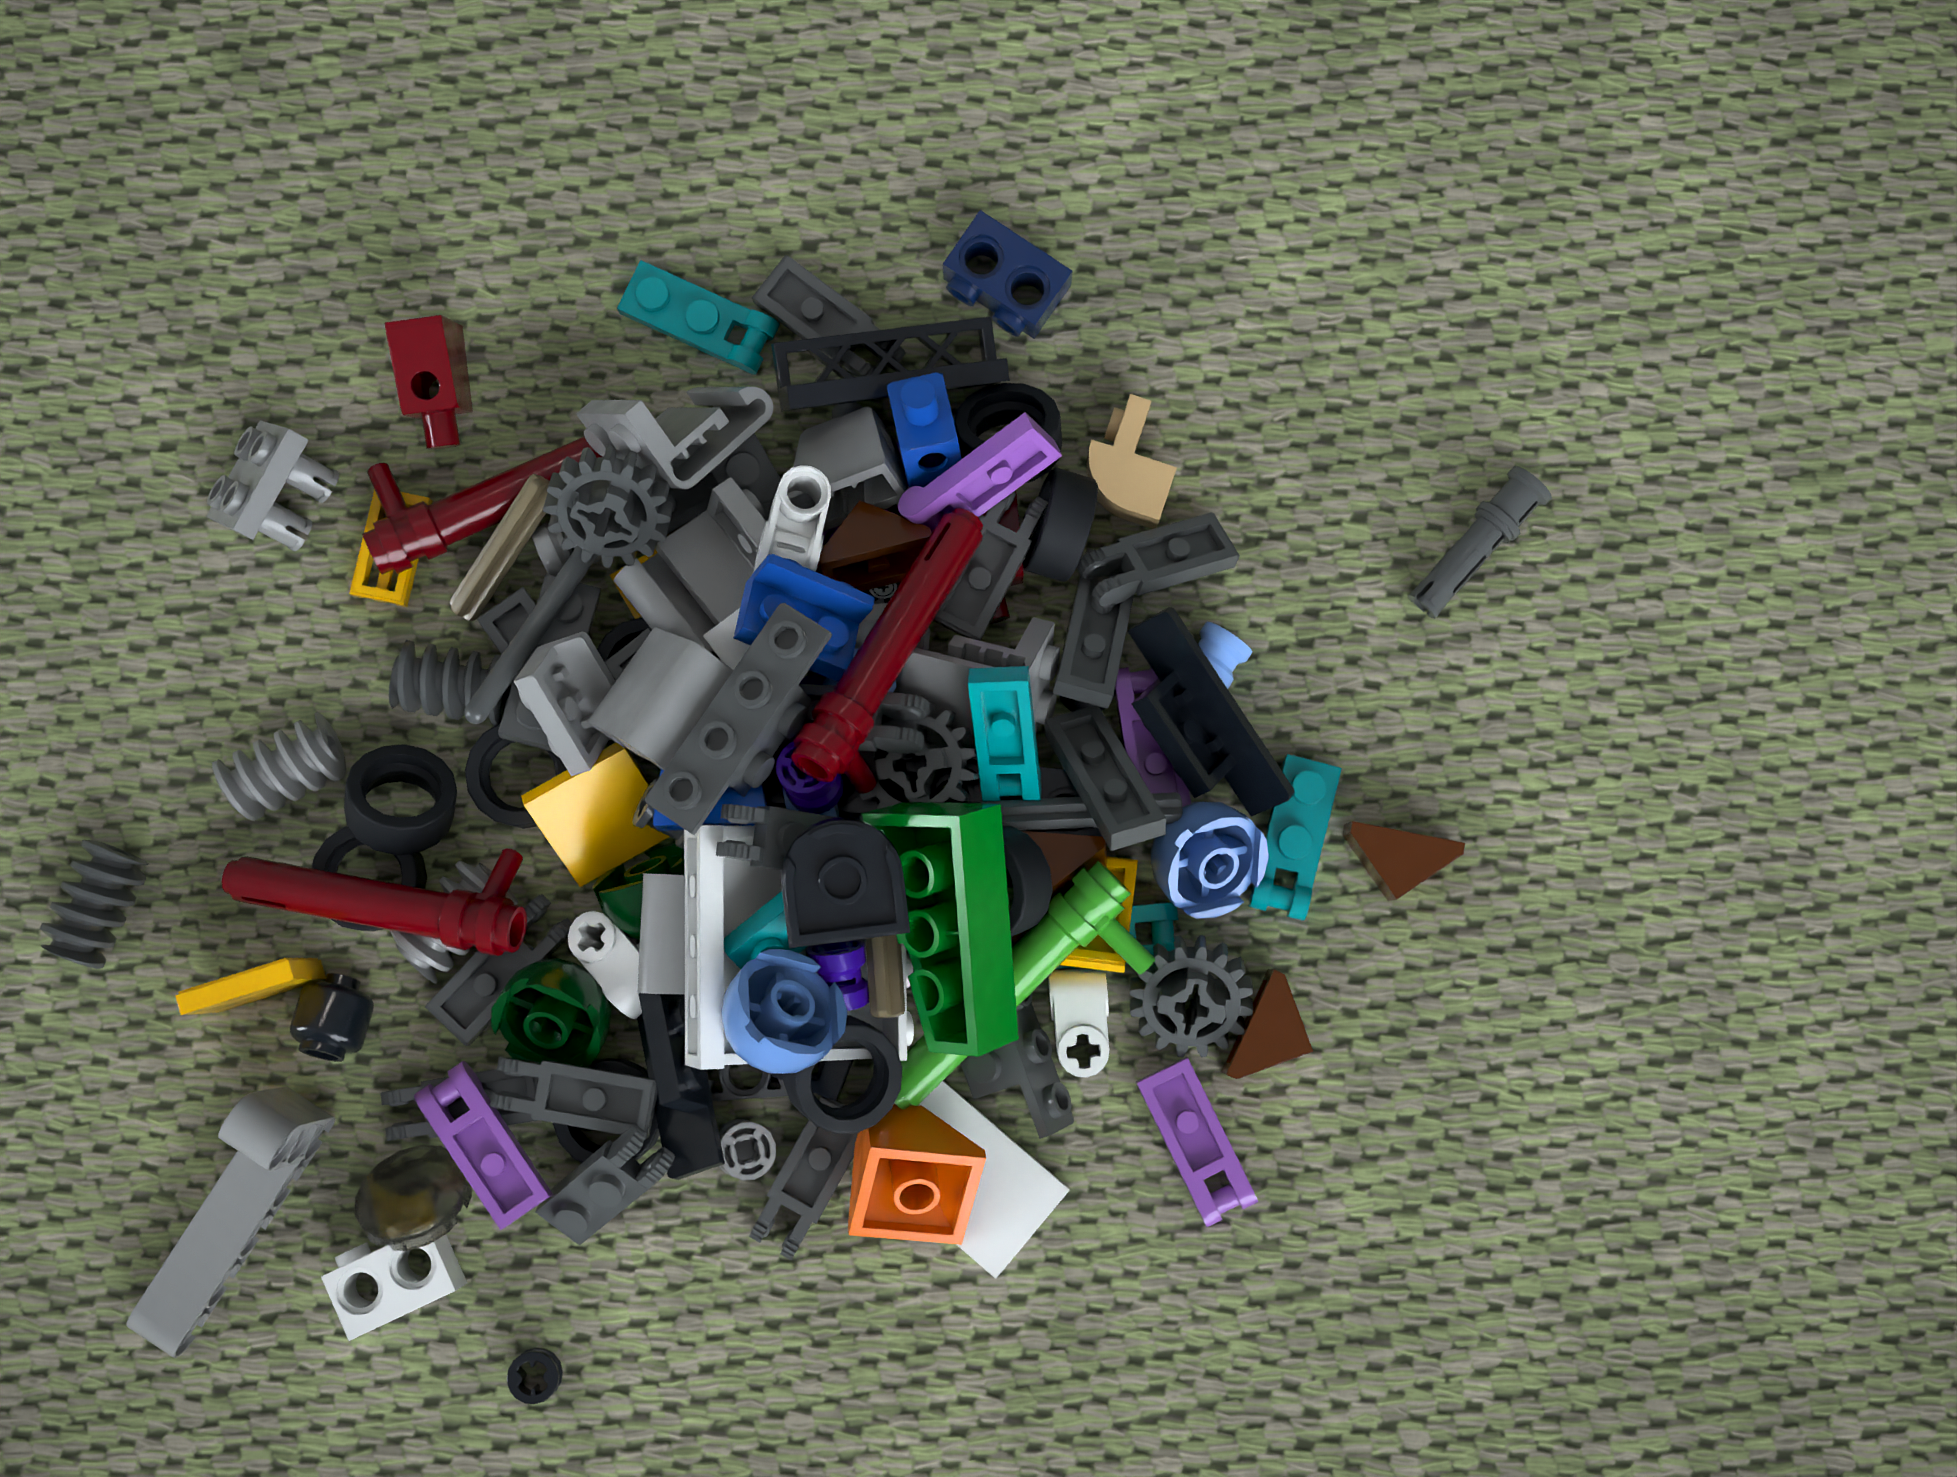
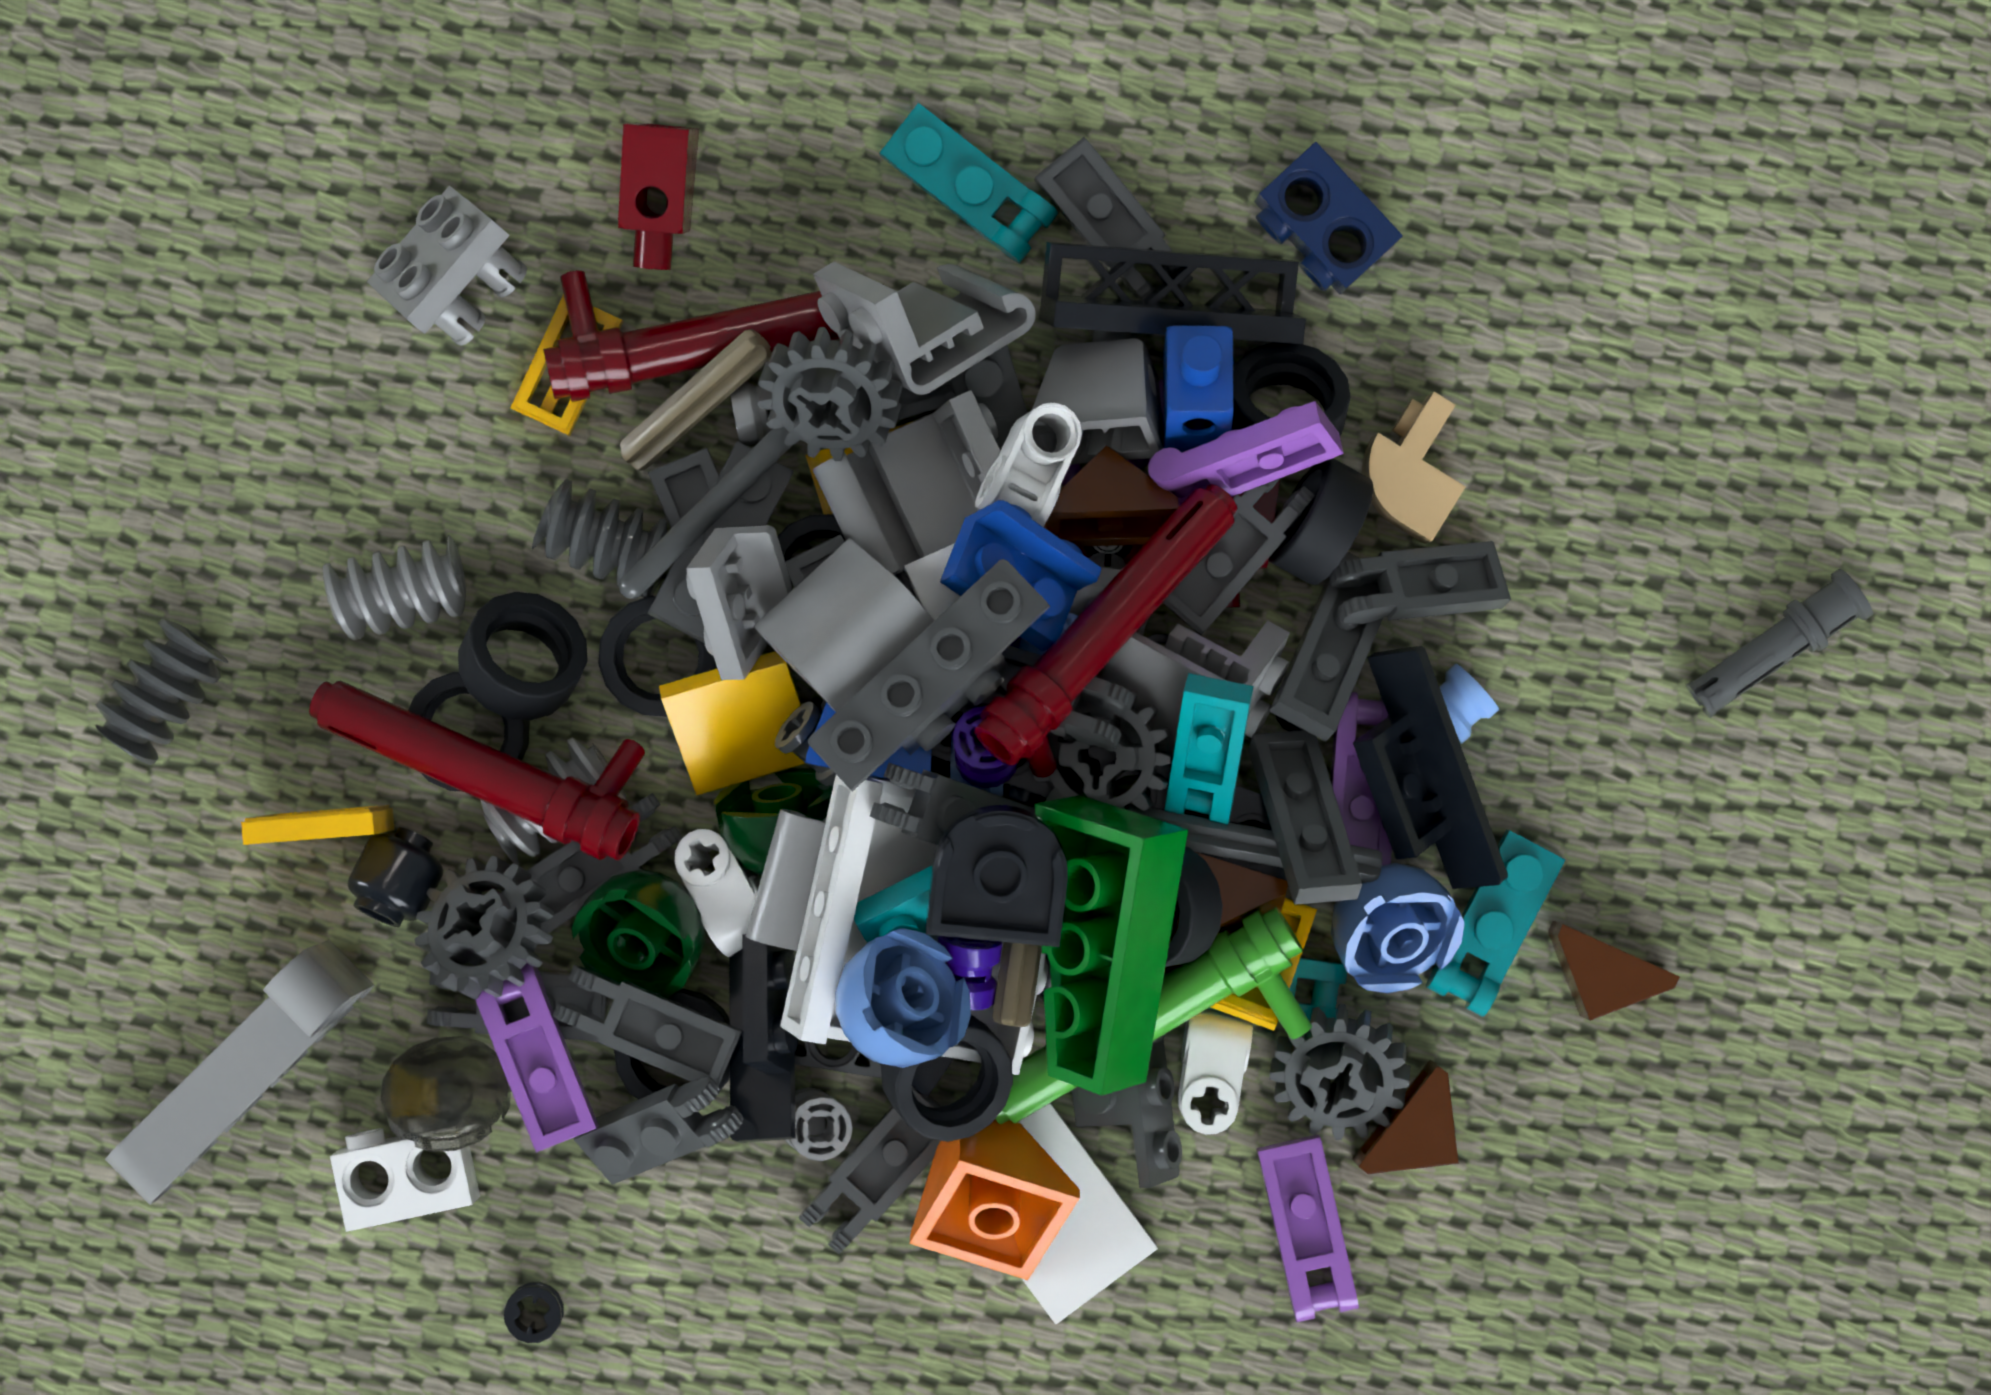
camera: 15 degrees right, 5 degrees up
(415, 1037) = (480, 927): none -> dark grey gear

